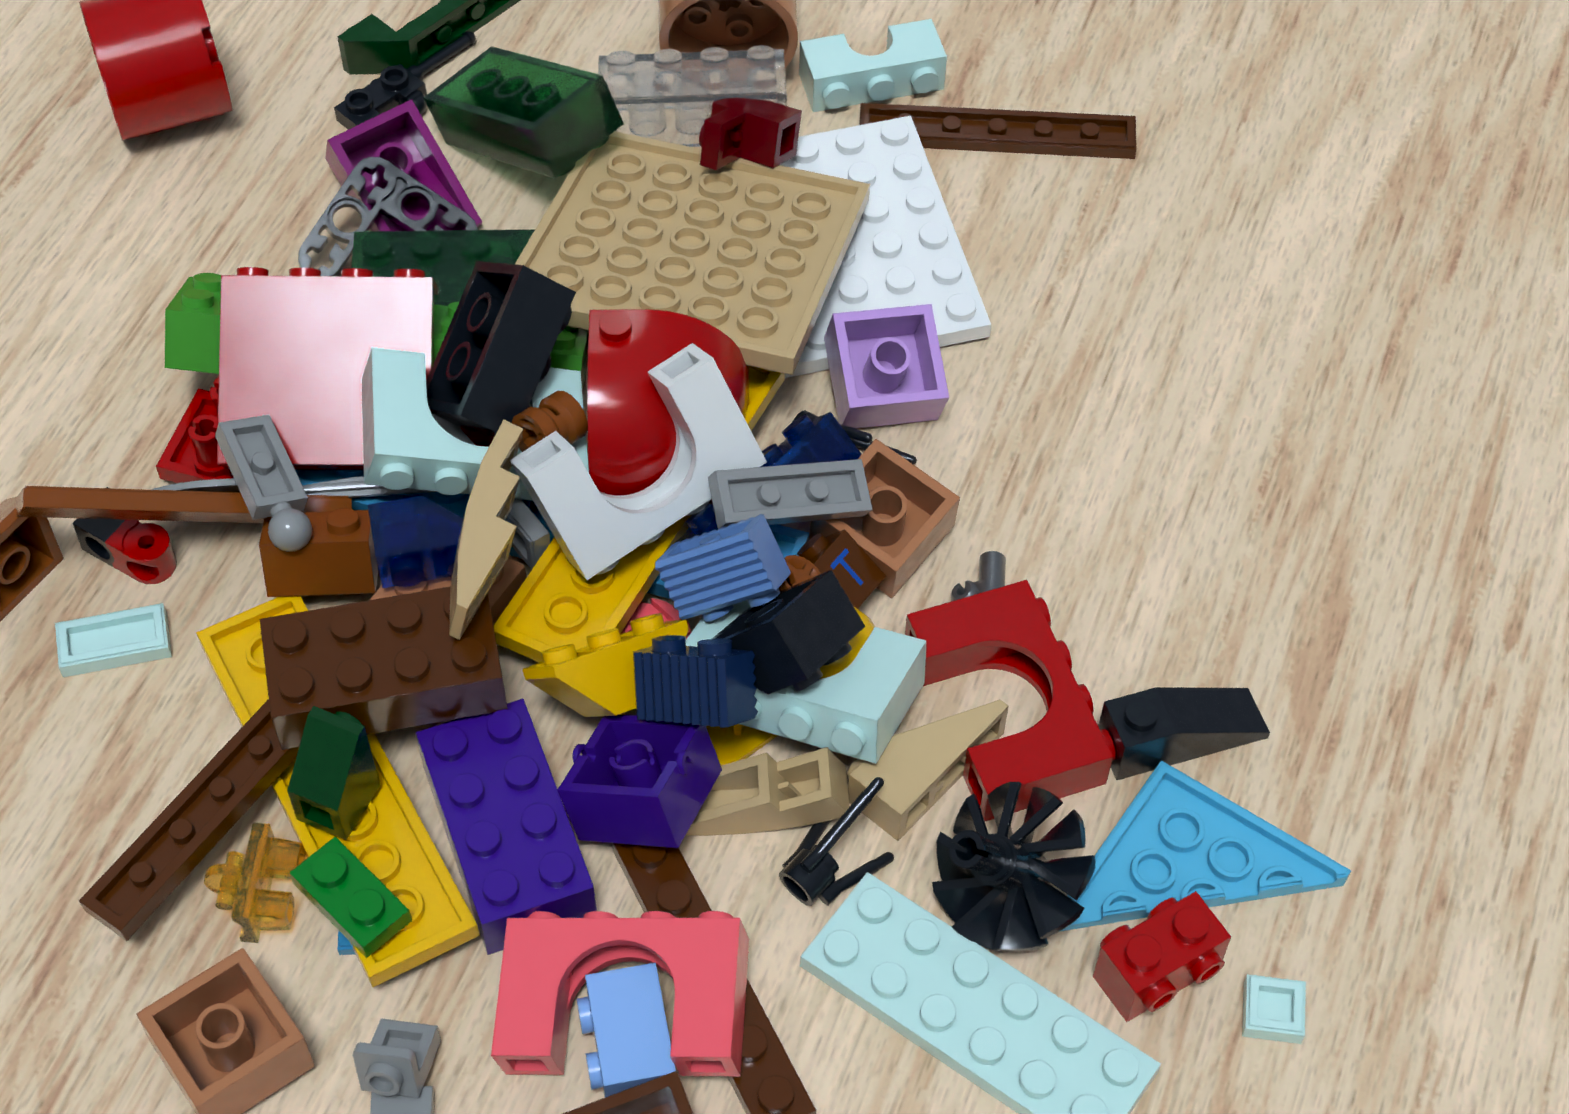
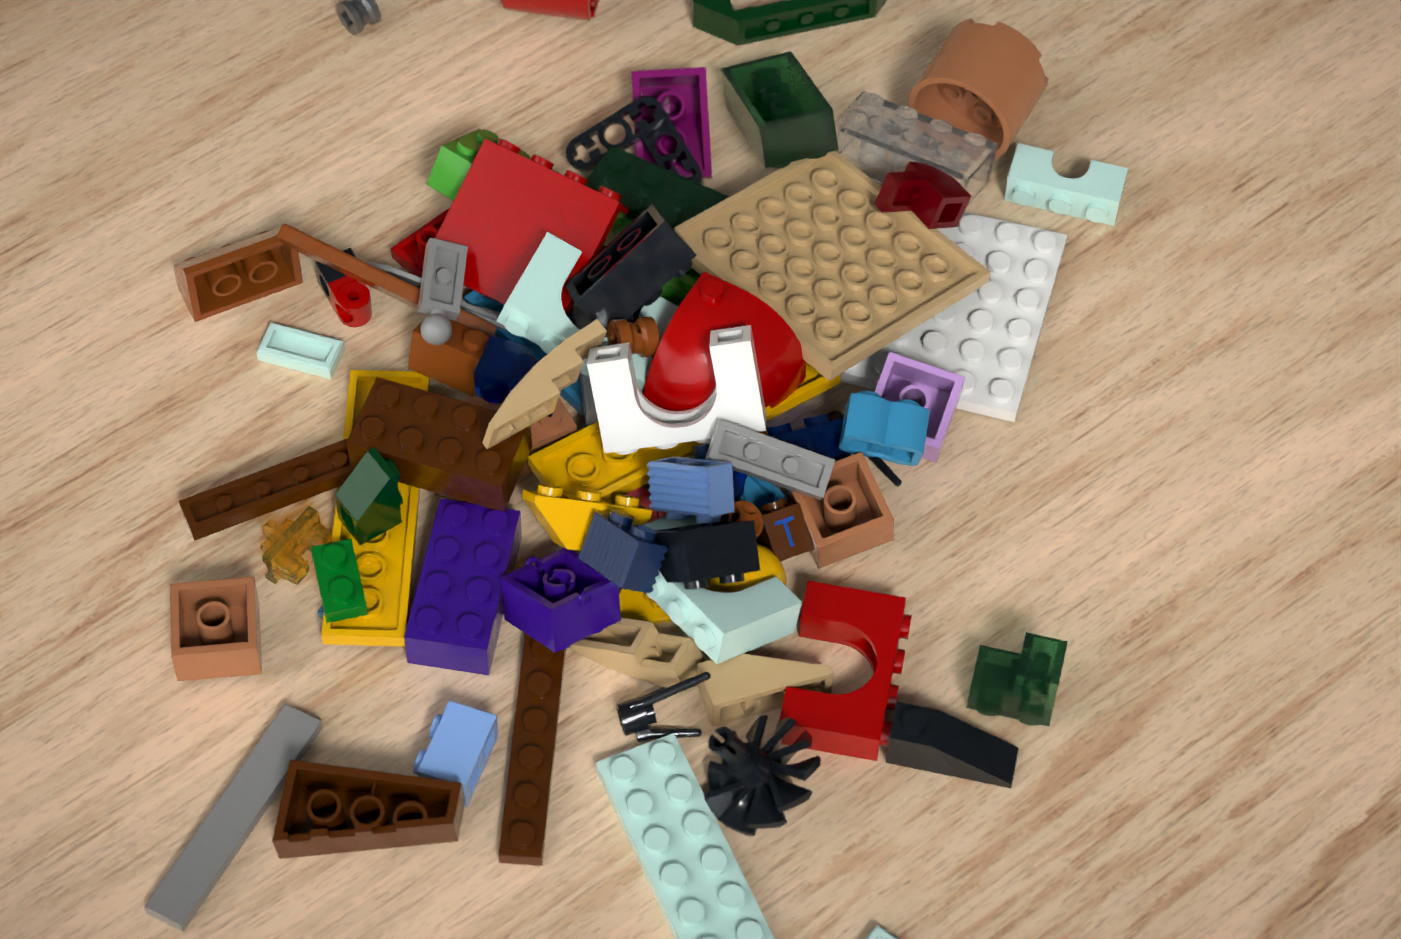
camera: 30 degrees right, 0 degrees up
(395, 87) = (715, 52): black piece -> none
(397, 1058) = (309, 693): light grey bracket -> none
(548, 964) = (523, 730): coral arch -> none
(886, 400) = (884, 428): none -> dark azure brick
(990, 576) = (894, 585): flat silver arm -> none
(1014, 130) = (1141, 279): reddish brown tile -> none
(1161, 956) = (825, 881): red brick -> none
(1191, 840) = (896, 829): medium azure tile -> none
(1212, 614) = (1018, 683): none -> clear green brick

